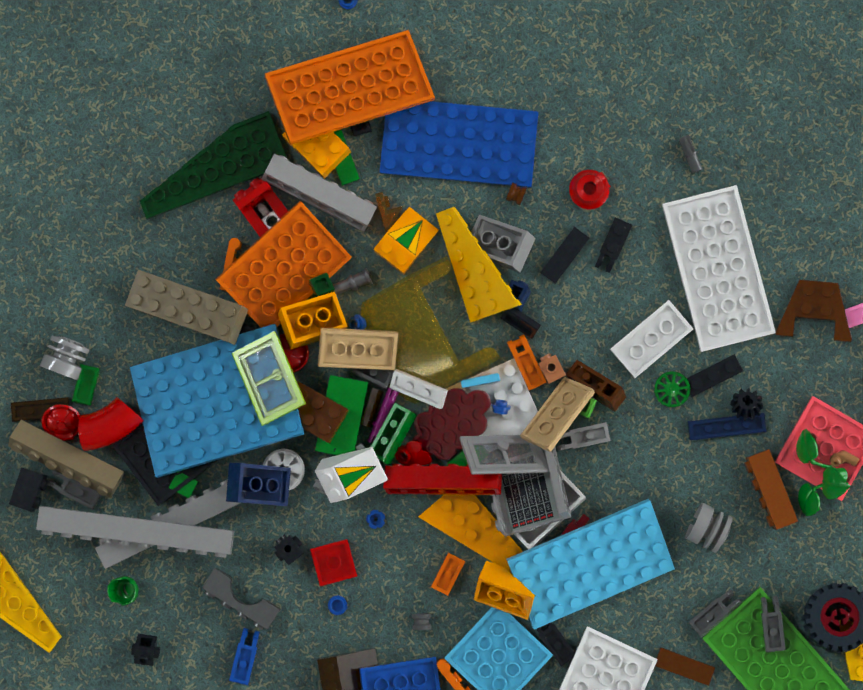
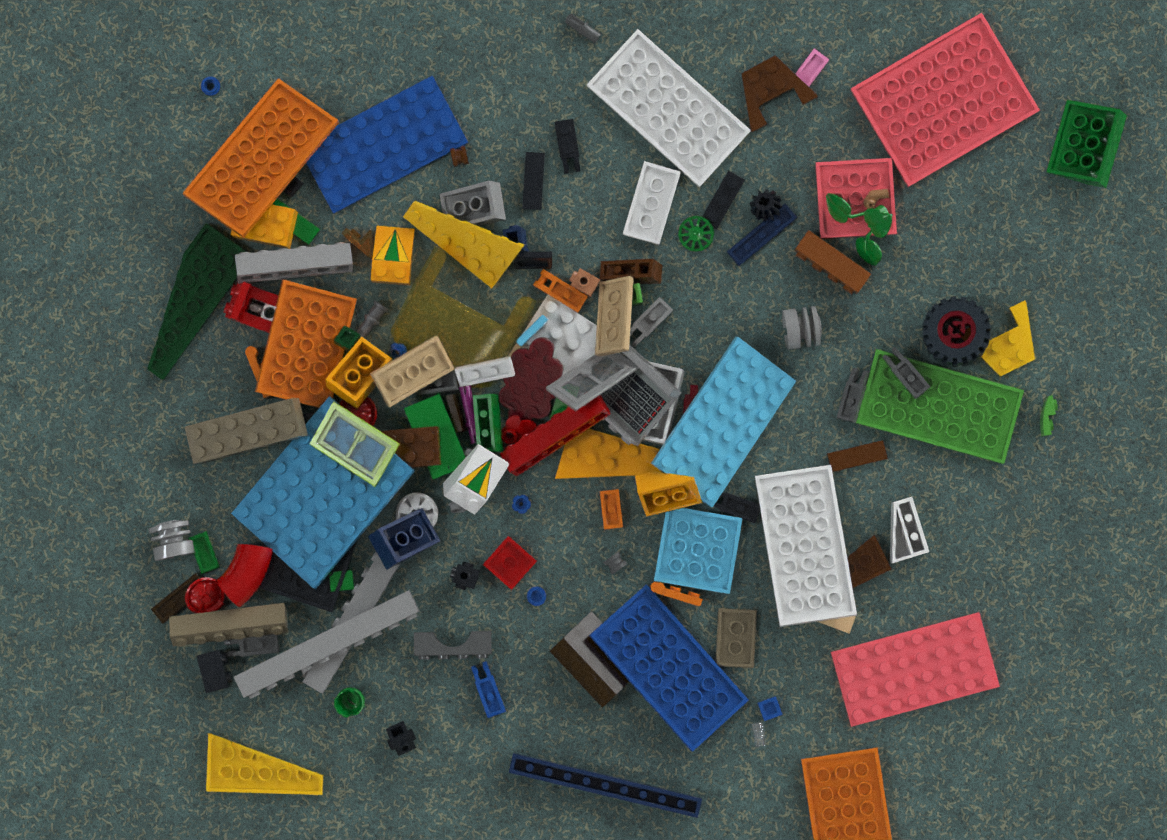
camera: 40 degrees left, 0 degrees up
(500, 407) = (563, 341): blue plate -> none
(589, 189) = (517, 112): red piece -> none

